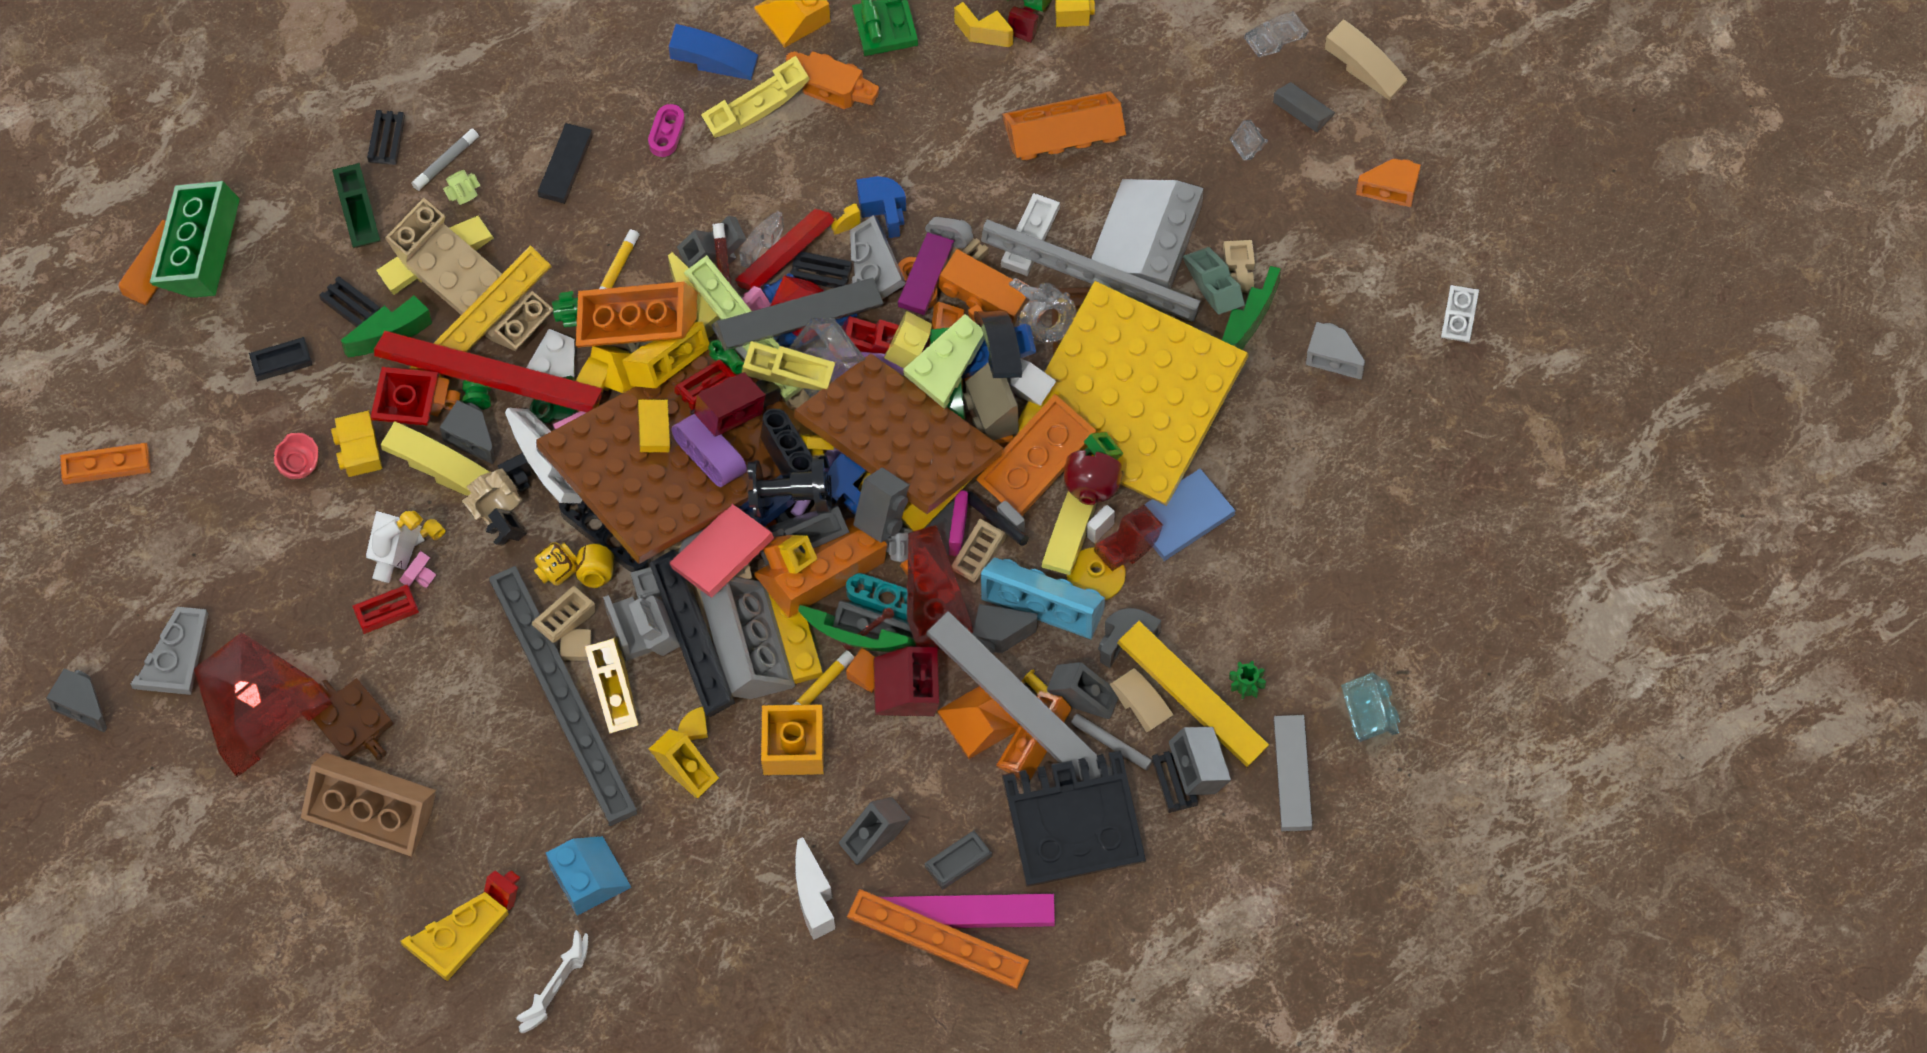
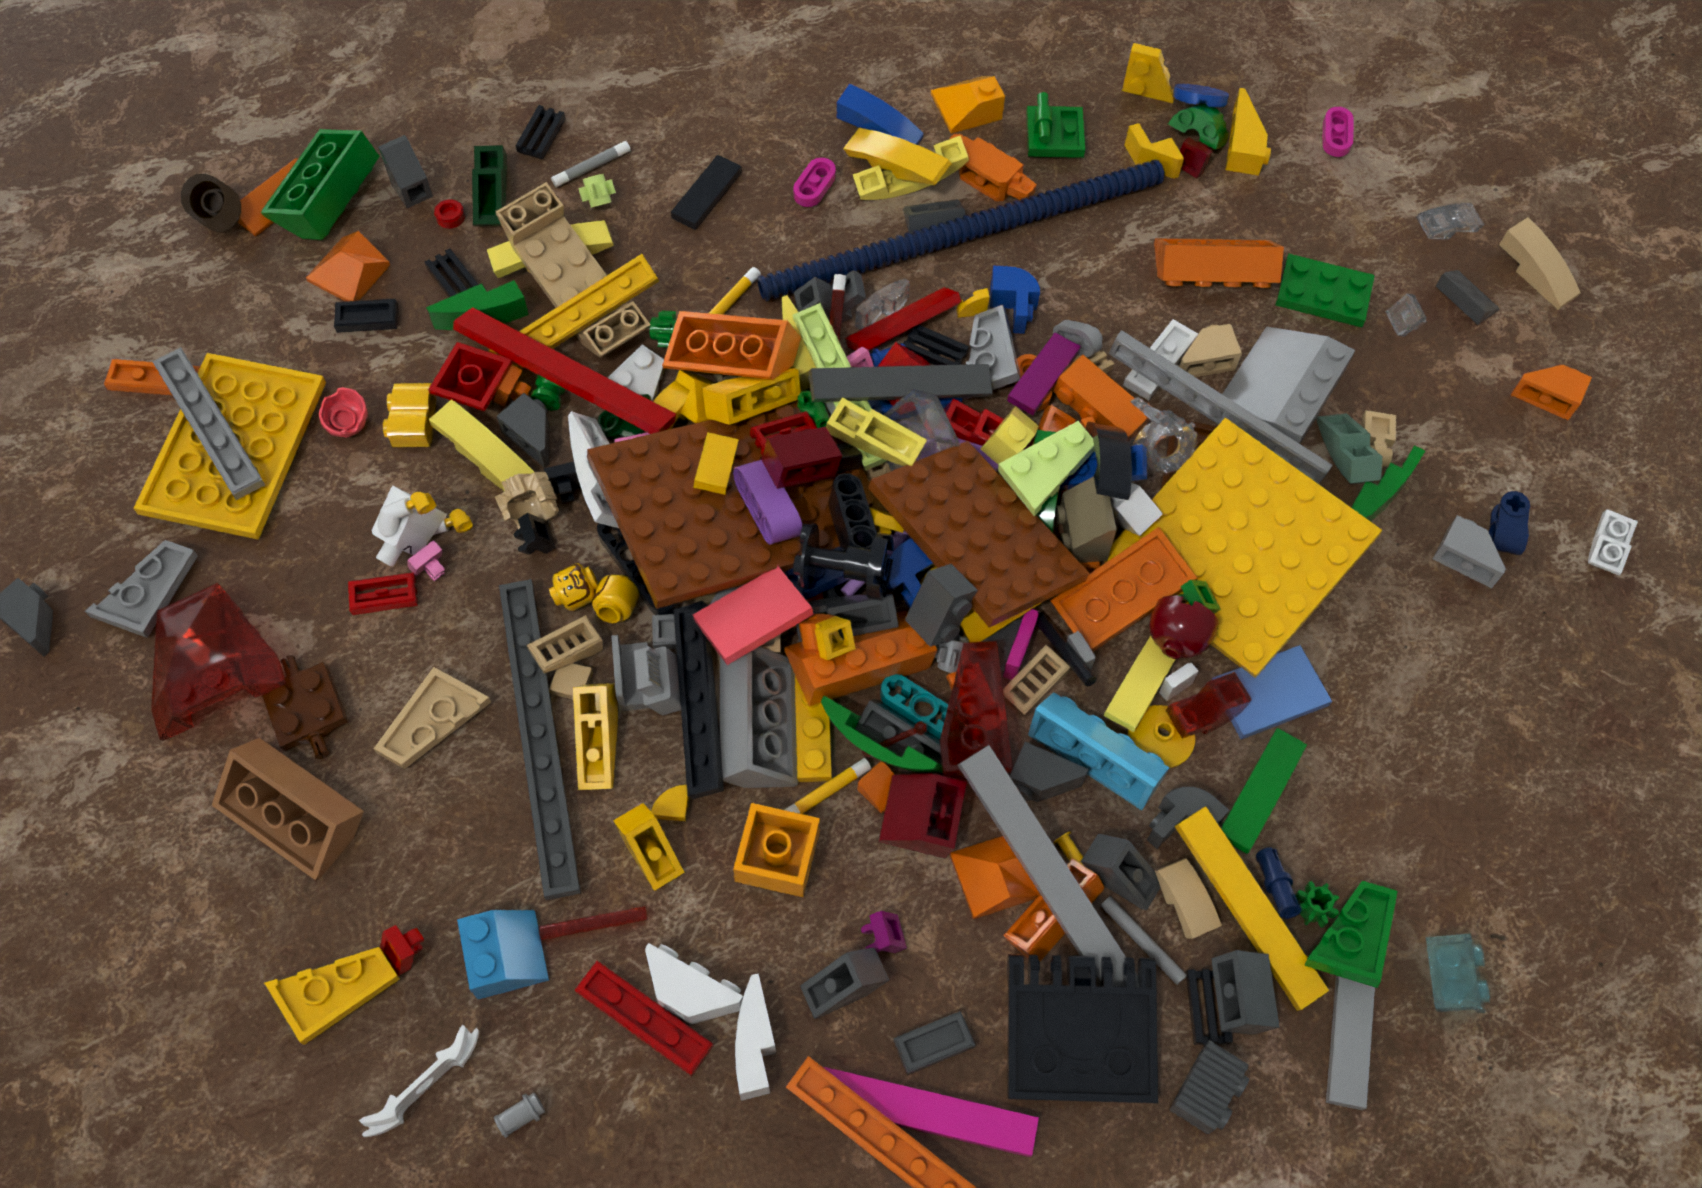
camera: 10 degrees right, 0 degrees up
(99, 283) = (211, 202): none -> dark brown piece
(177, 493) = (208, 423): none -> light grey tile
(202, 508) = (267, 414): none -> yellow plate
(248, 316) = (349, 268): none -> orange slope
(274, 211) = (405, 172): none -> dark grey slope
(325, 241) = (449, 213): none -> red tile
(464, 702) = (429, 717): none -> tan wing
(639, 988) = (519, 1114): none -> light grey pin
(654, 834) = (593, 923): none -> clear red bar
(717, 896) = (644, 1018): none -> red tile
(739, 87) = (900, 156): none -> yellow slope
(748, 864) = (687, 988): none -> white slope
(789, 140) = (932, 213): none -> dark grey slope
(819, 147) = (966, 228): none -> dark blue piece
(899, 782) = (886, 931): none -> magenta tile
(1074, 217) = (1212, 352): none -> tan slope
(1170, 130) = (1325, 290): none -> green plate
(1185, 839) = (1210, 1087): none -> dark grey brick
(1187, 597) = (1262, 790): none -> green slope
(1213, 669) = (1278, 883): none -> dark blue pin
(1285, 697) = (1358, 937): none -> green wing
(1366, 321) = (1510, 523): none -> dark blue piece

